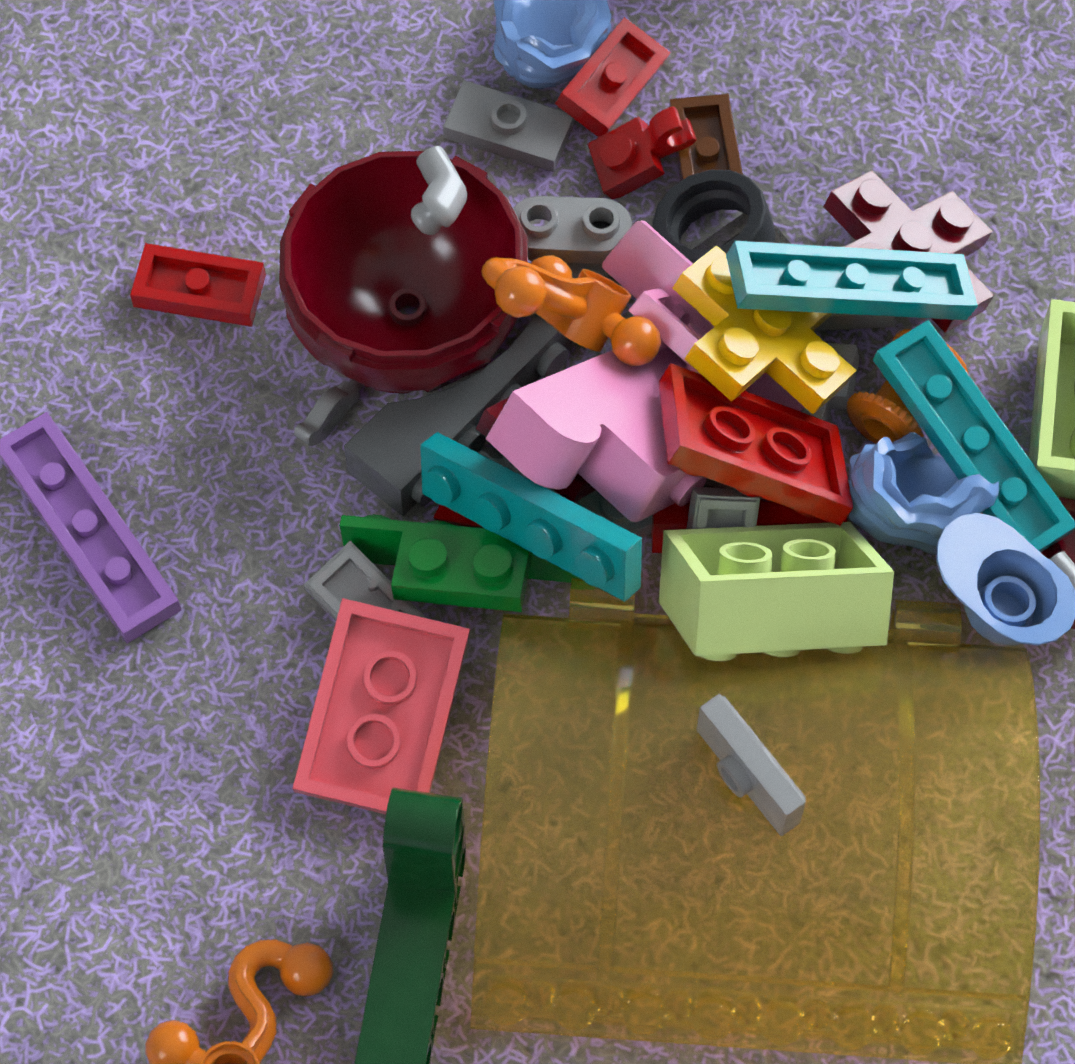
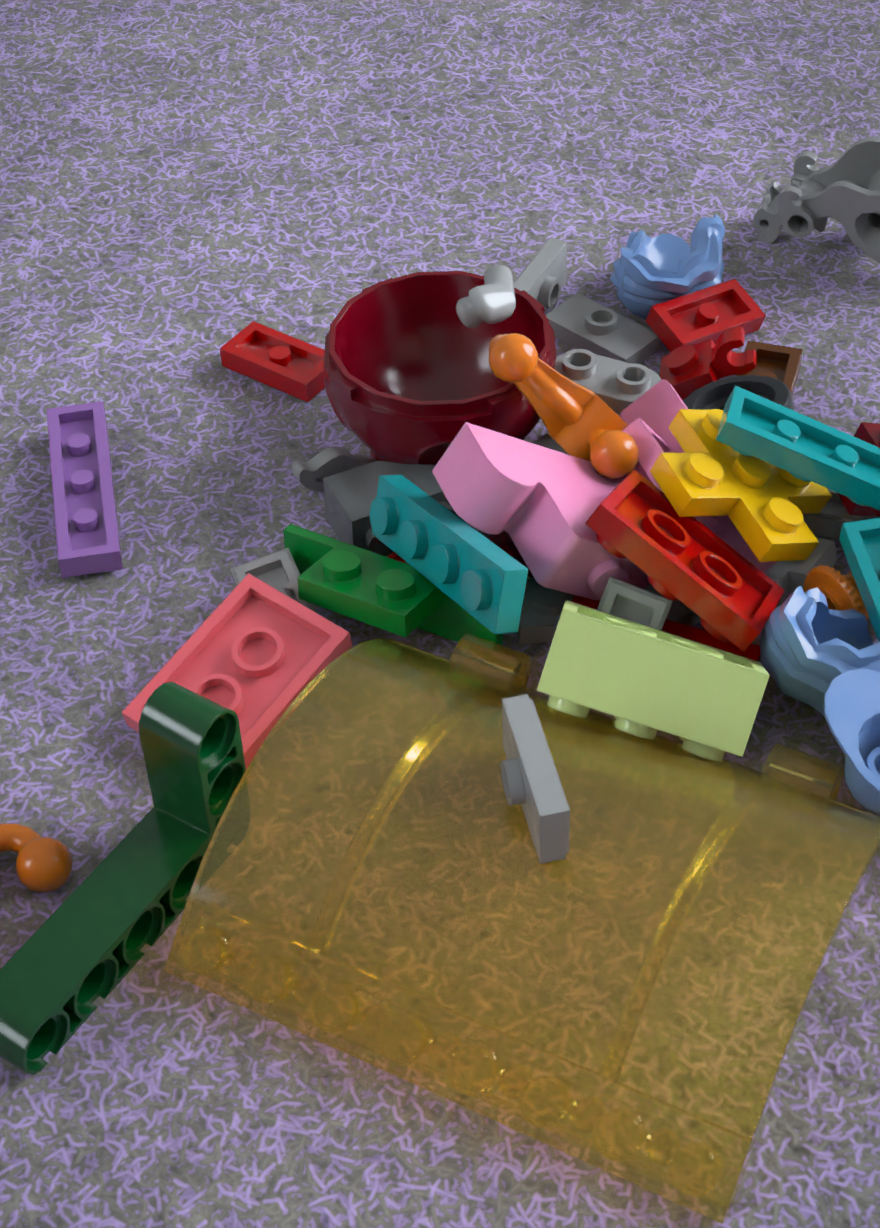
camera: 25 degrees right, 20 degrees down
(422, 89) = (545, 273): none -> light grey plate

